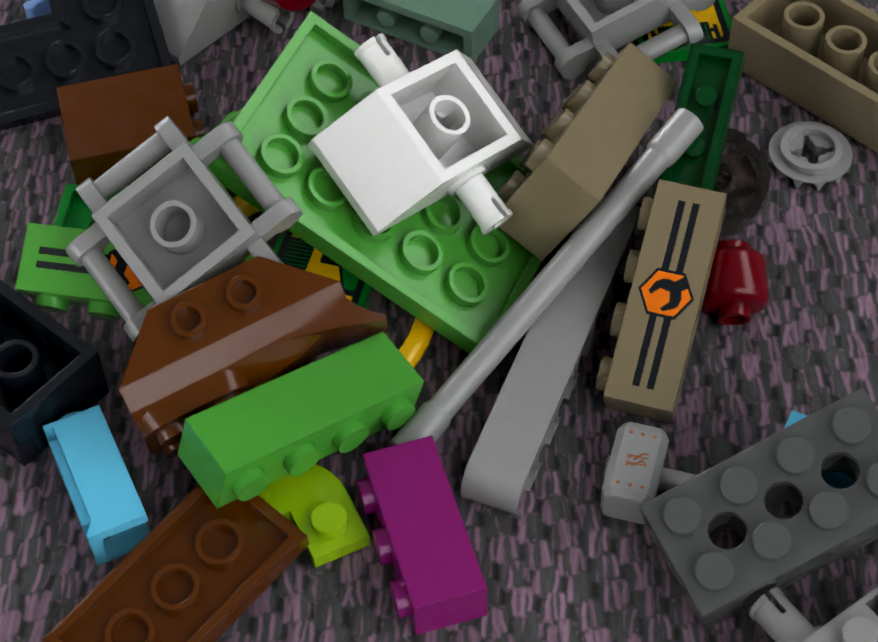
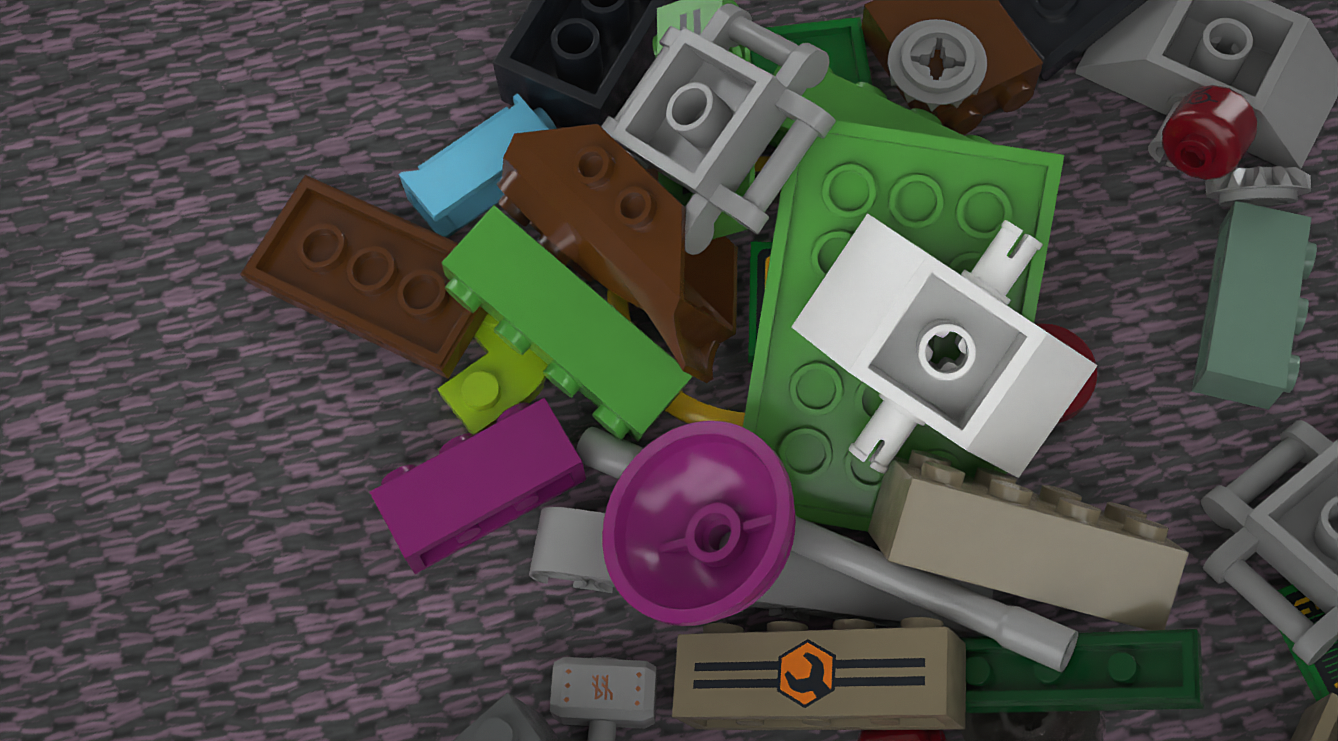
camera: 80 degrees right, 15 degrees up
(148, 105) = (961, 56): none -> light grey gear
(519, 292) = (677, 507): none -> magenta hat

